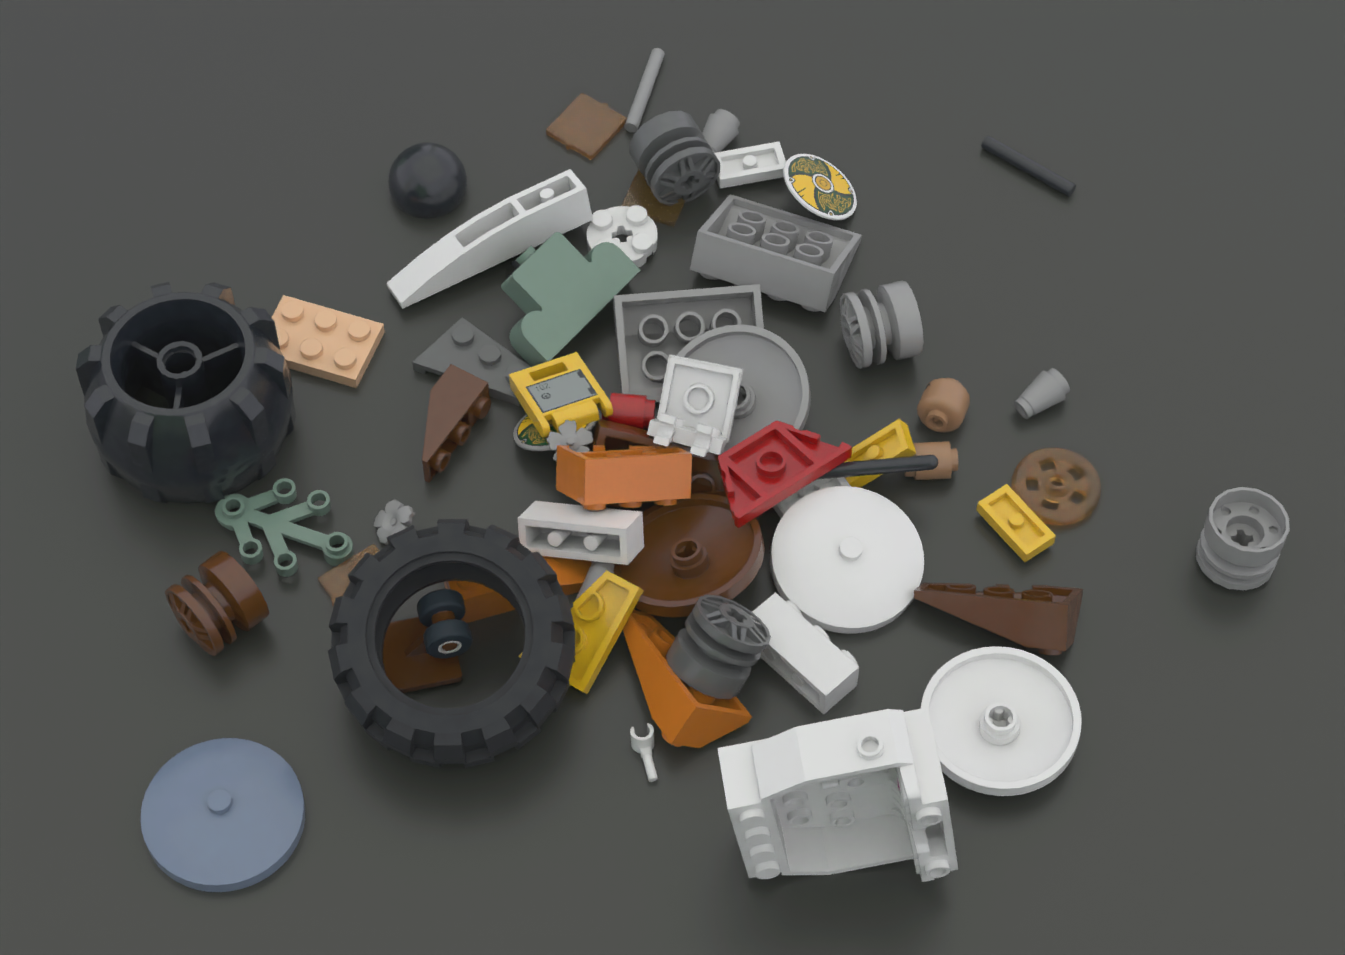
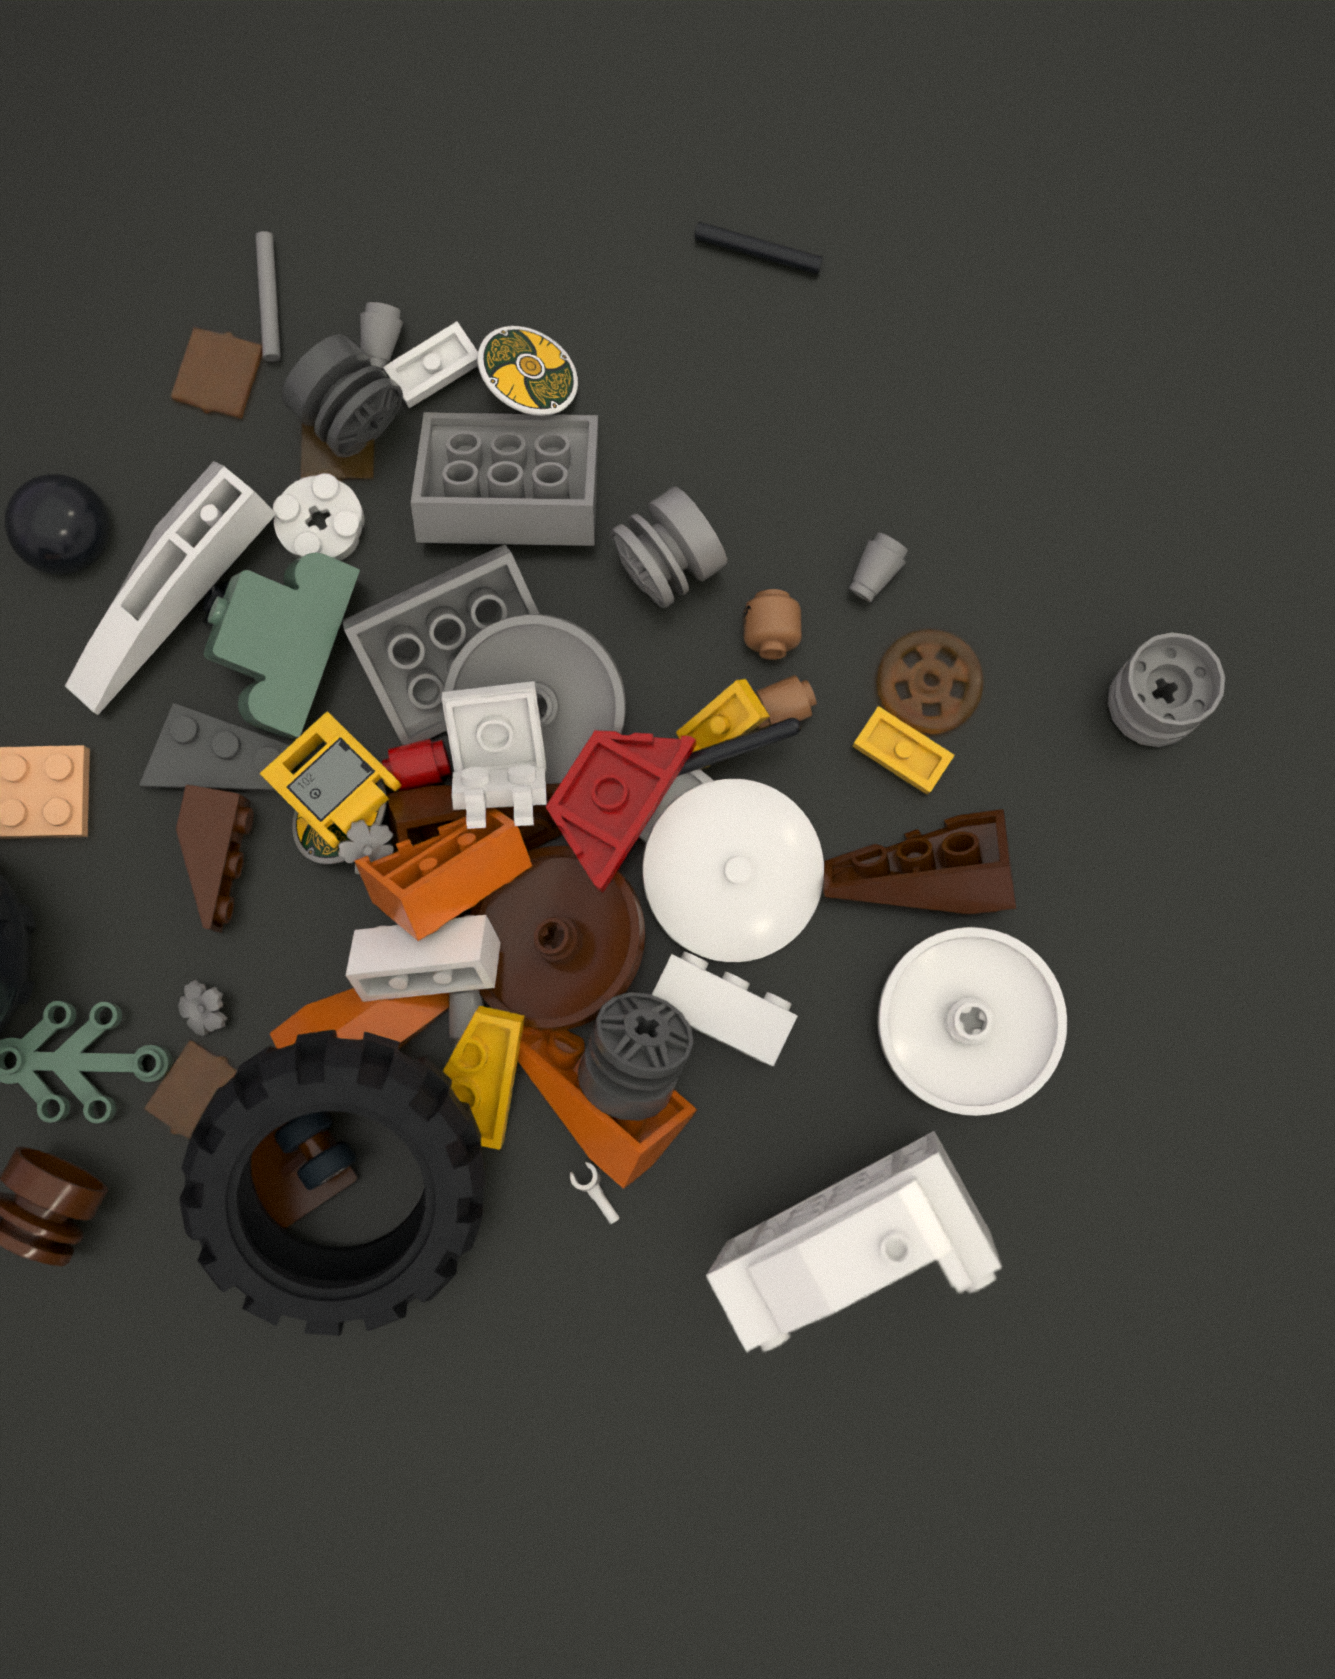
camera: 20 degrees left, 25 degrees up
(223, 815) = (158, 1445): sand blue dish -> none

